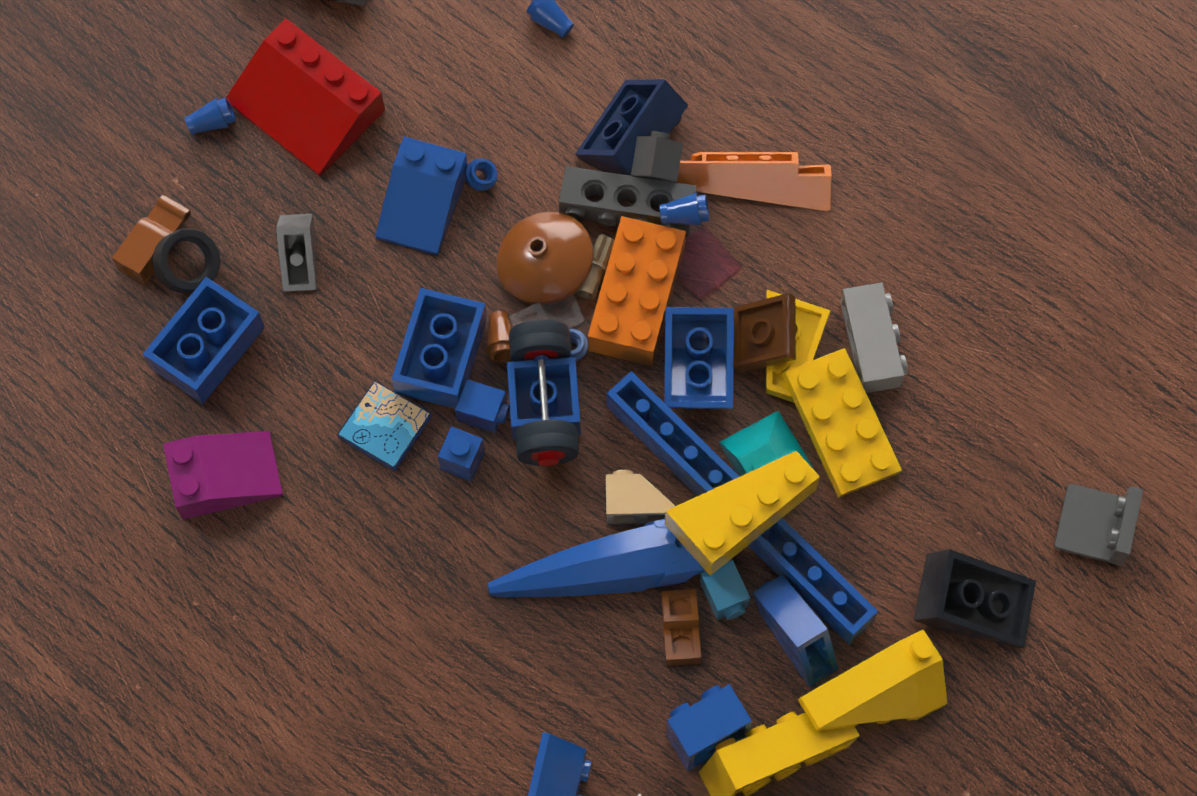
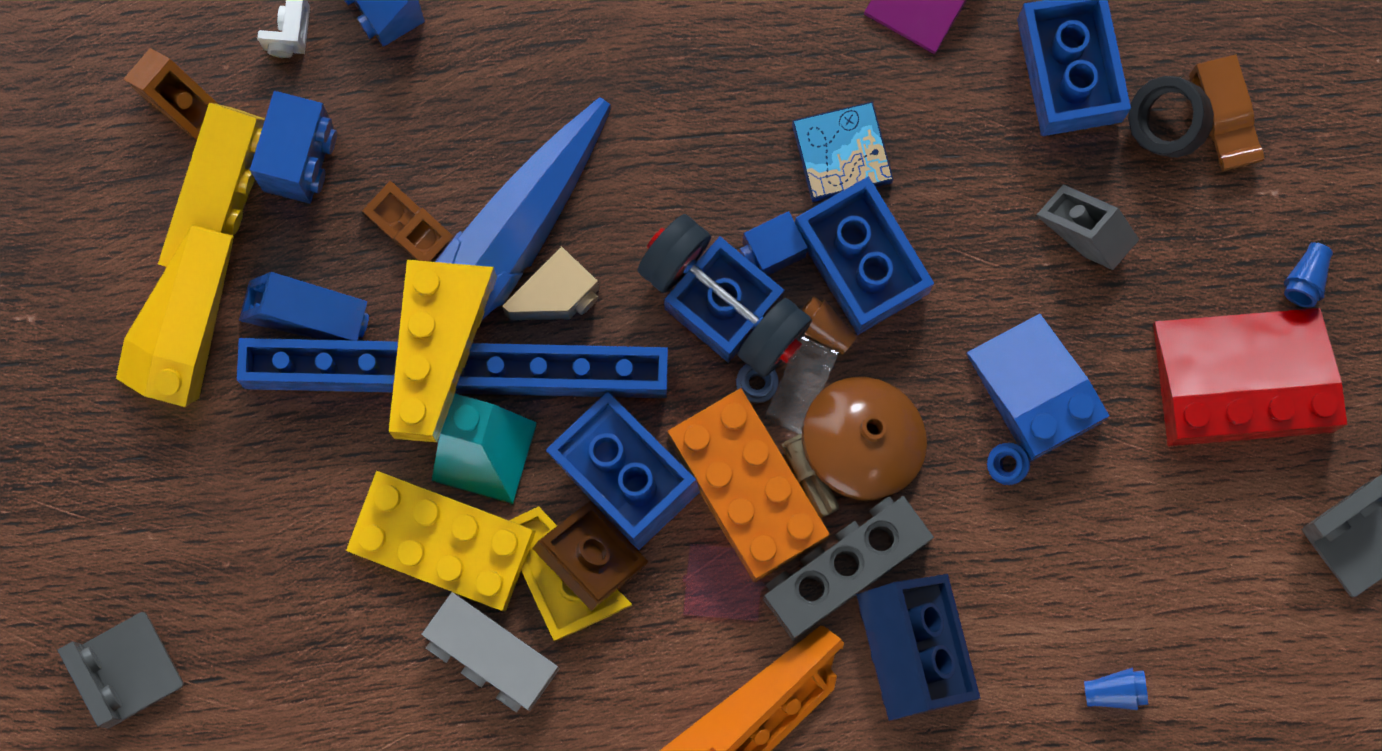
camera: 130 degrees right, 10 degrees up
(461, 454) = (745, 184): blue brick -> none
(657, 157) = (856, 625): dark grey brick -> none
(686, 210) = (772, 596): blue cone -> none
(725, 592) = (385, 283): dark azure brick -> none
(974, 598) = (171, 488): black slope -> none

